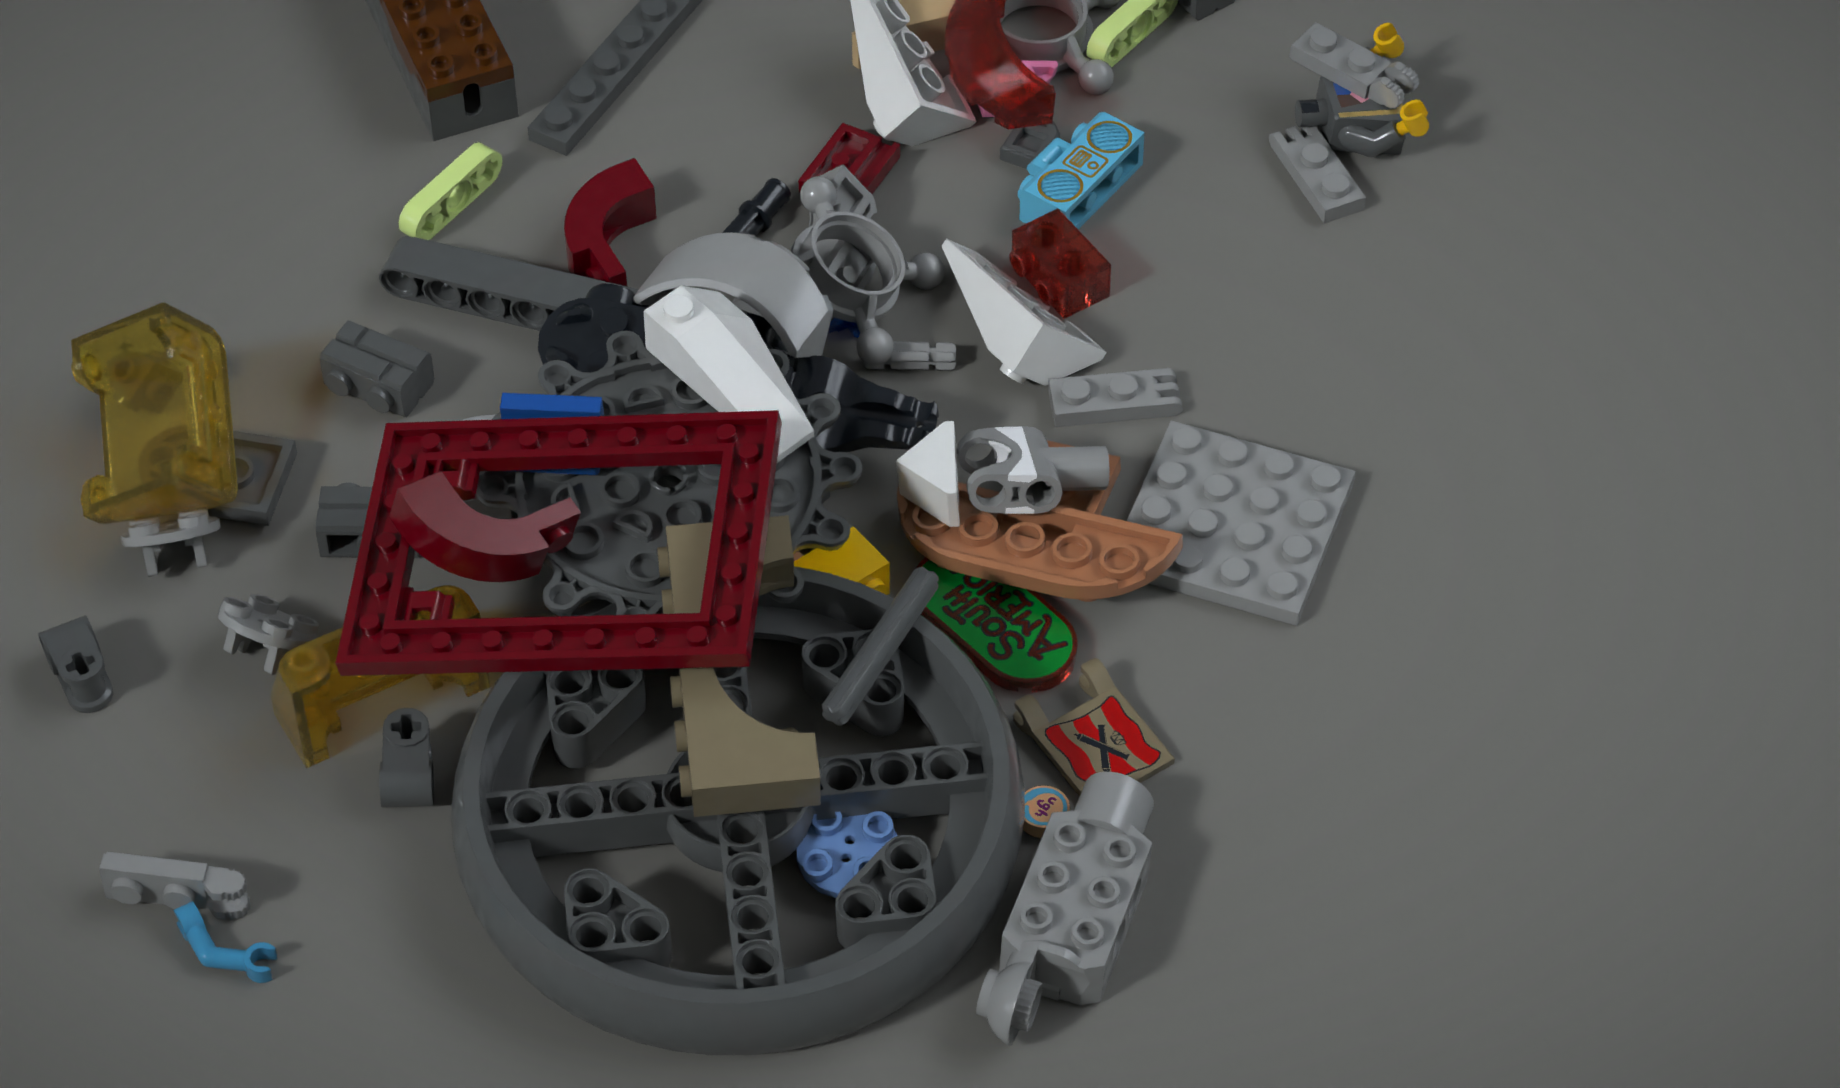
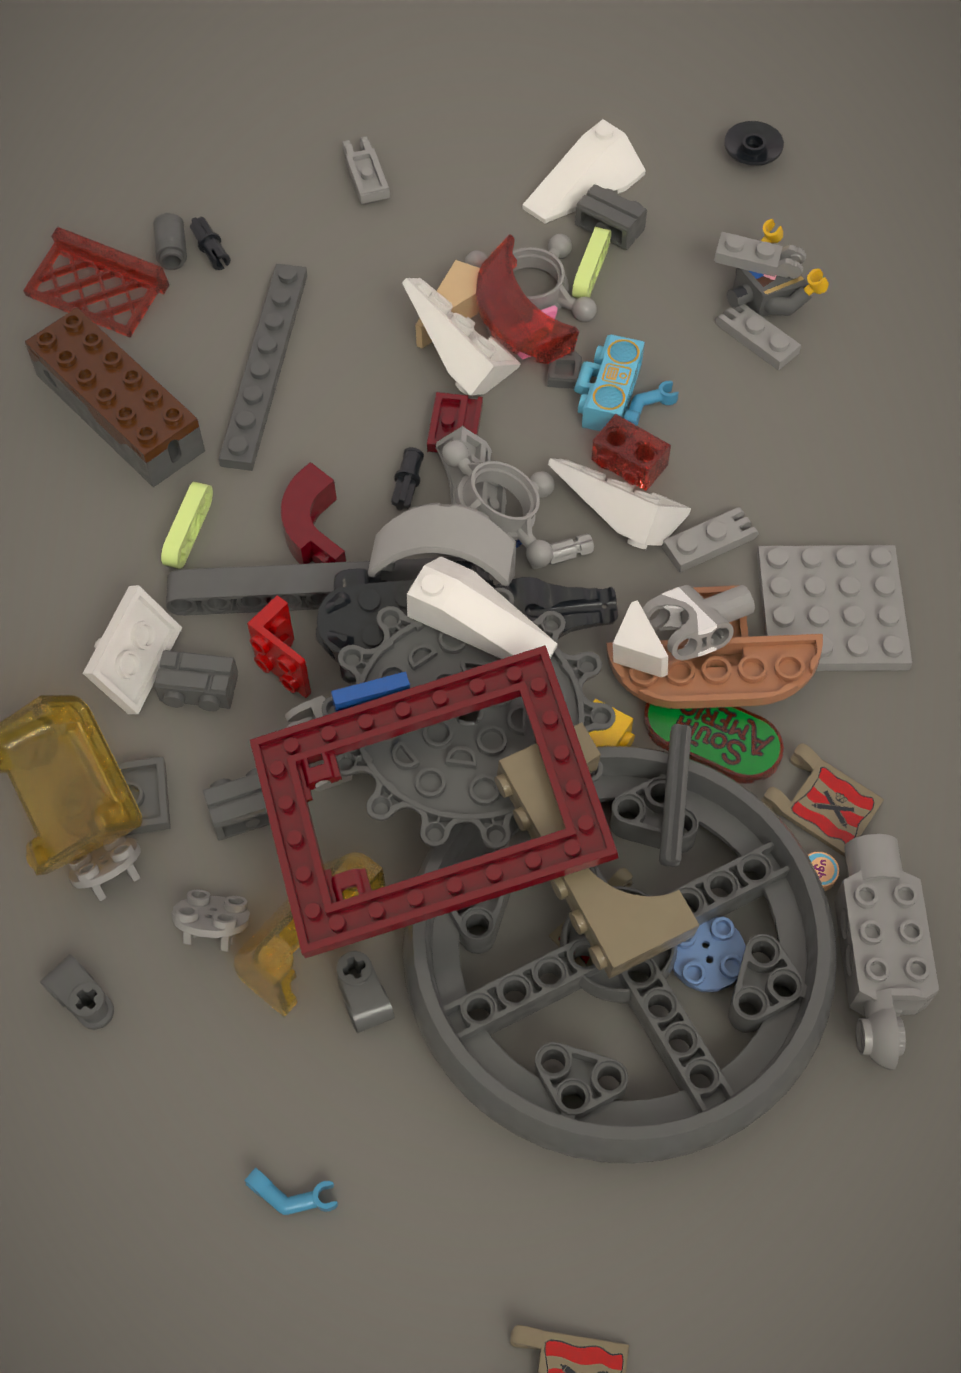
camera: 20 degrees left, 10 degrees up
(174, 884) = (237, 1156): light grey hinge -> none
(308, 307) = (132, 649): none -> white plate
(474, 544) = (359, 822): dark red arch -> none
(489, 346) = (272, 642): none -> red bracket
(1148, 208) = (659, 395): none -> dark azure arm

